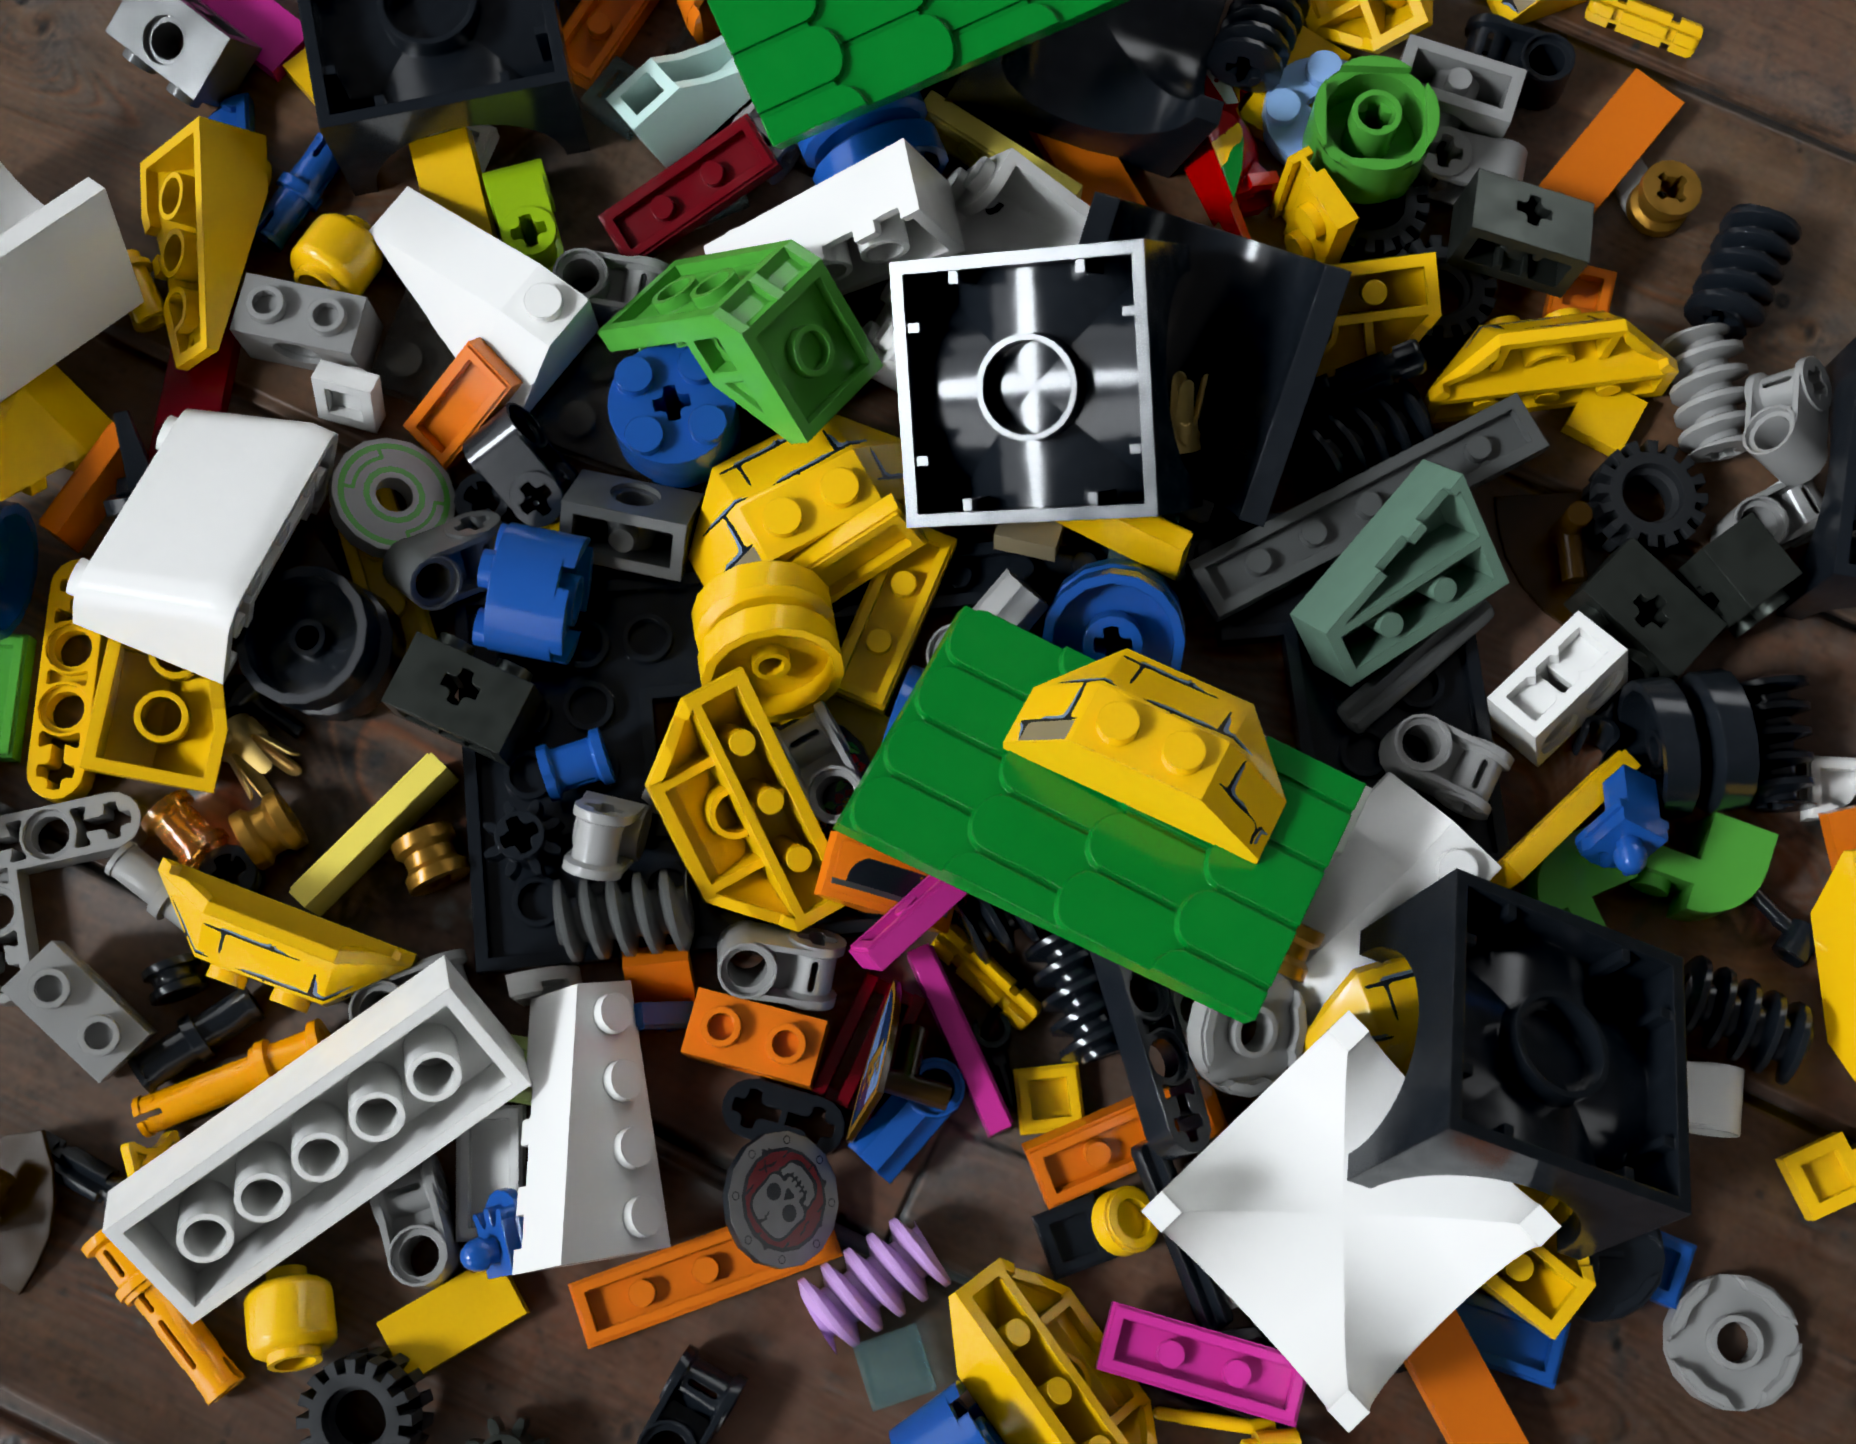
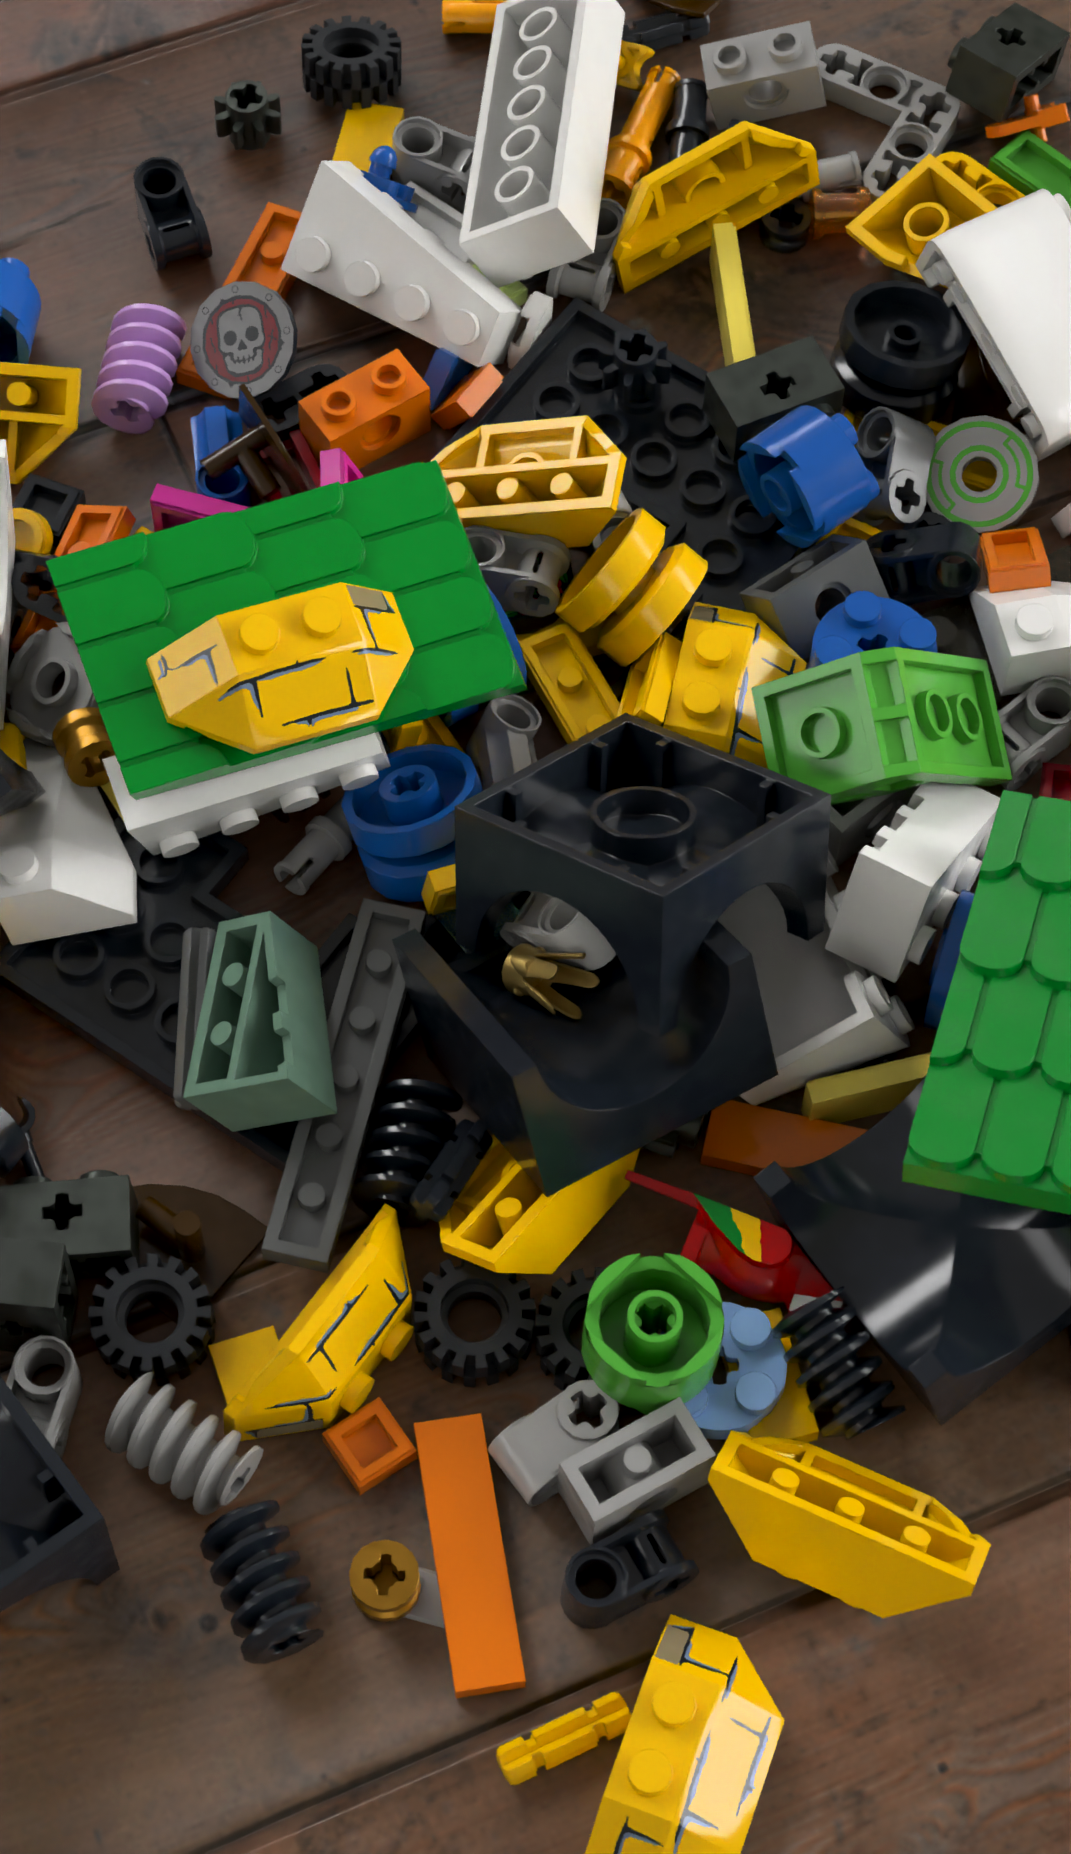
camera: 130 degrees right, 15 degrees down
(253, 753) = (856, 276): pearl gold piece -> none
(268, 830) = (795, 255): pearl gold wheel -> none
(290, 1319) = (450, 65): yellow head -> none
(430, 858) = (684, 326): pearl gold wheel -> none
(575, 764) = (656, 440): blue bush -> none
(607, 836) = (587, 387): light grey piece -> none
(624, 916) = (524, 374): dark grey piece -> none
(785, 966) = (405, 435): light grey piece -> none
(894, 1367) = (76, 346): clear light blue tile -> none
(1313, 209) = (619, 1232): yellow plate -> none
(1457, 769) = (98, 962): light grey piece -> none
(1520, 233) = (475, 1357): pearl dark grey brick -> none
(1558, 688) = (75, 1100): white brick -> none
(1789, 420) = (96, 1438): light grey piece -> none

